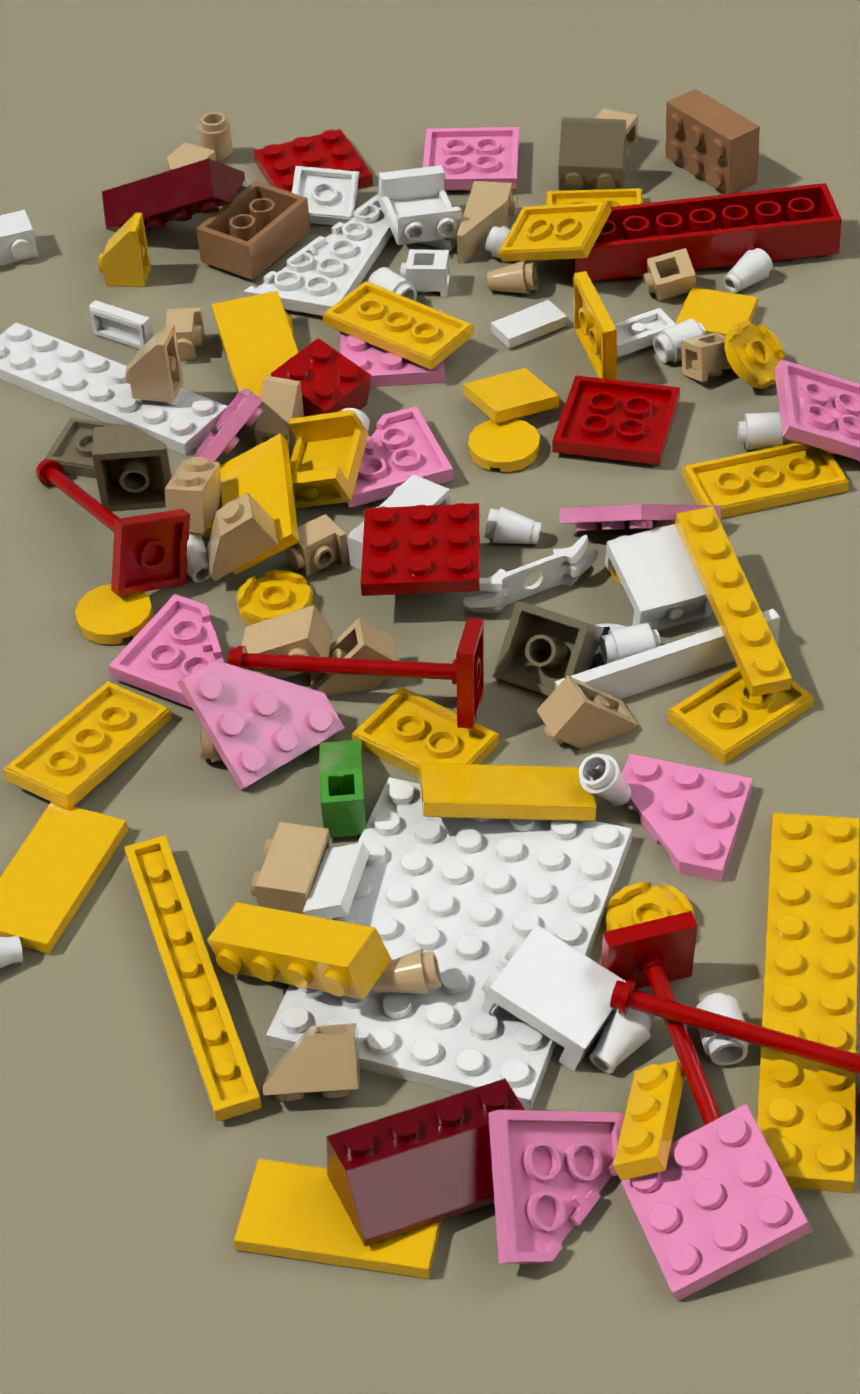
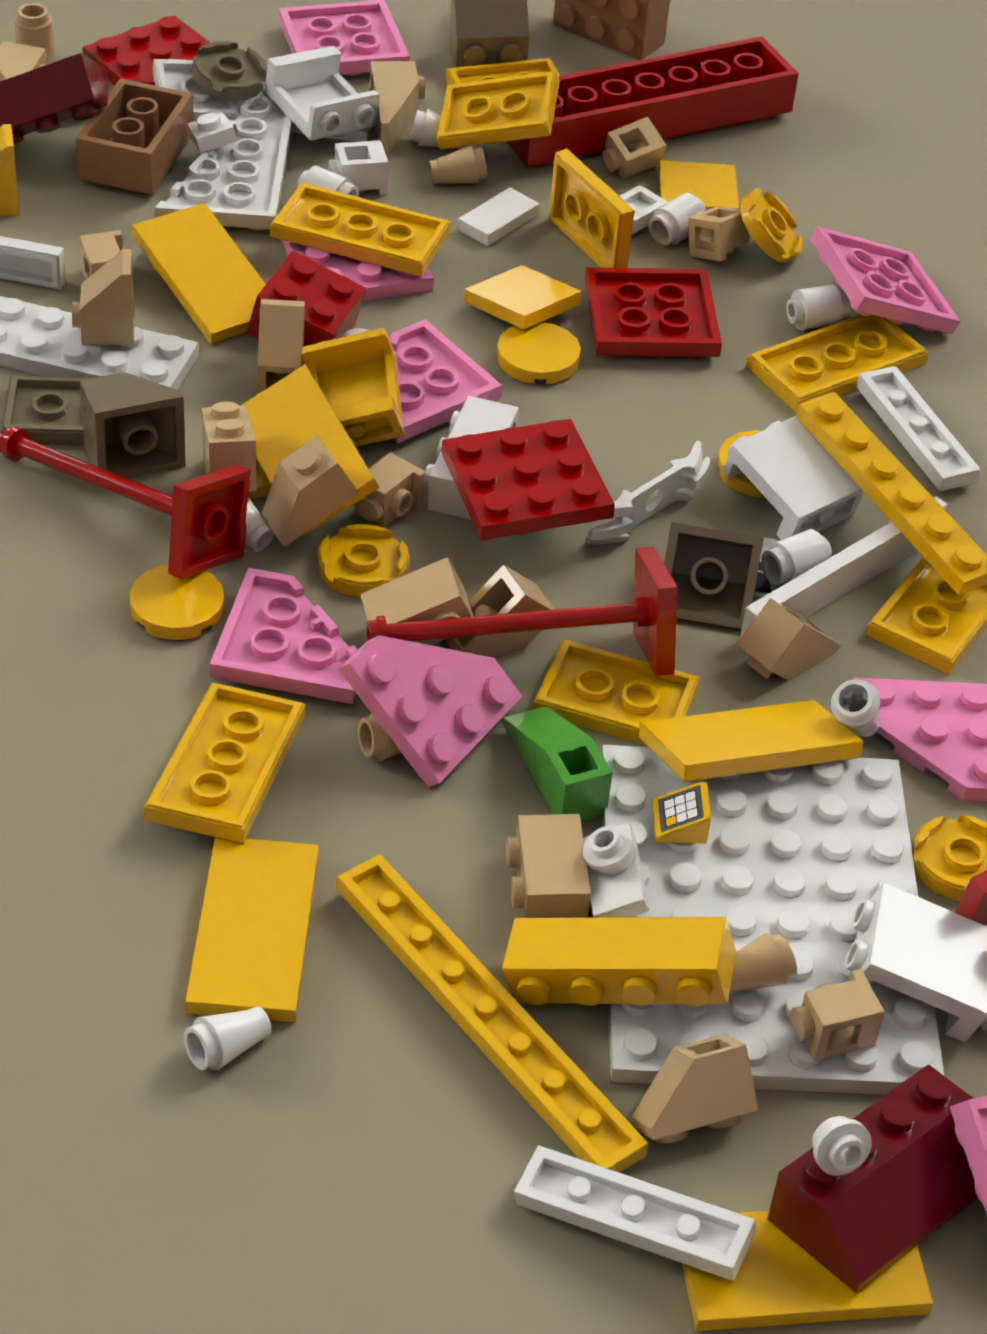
camera: 25 degrees left, 0 degrees up
(222, 1148) = (636, 1212): none -> white plate
(240, 411) = (222, 363): bright pink plate -> none
(315, 230) = (211, 131): none -> white plate
(333, 860) = (609, 849): none -> white plate
(352, 180) = (229, 71): none -> dark tan tile
(376, 1113) = (841, 1145): none -> white plate
(414, 844) = (682, 815): none -> slope
(451, 1027) = (838, 1017): none -> tan brick
(511, 528) = (605, 443): white cone -> none
(636, 515) = (728, 415): bright pink plate -> none
(750, 269) = (712, 136): white cone -> none
(801, 548) = (918, 428): none -> white plate

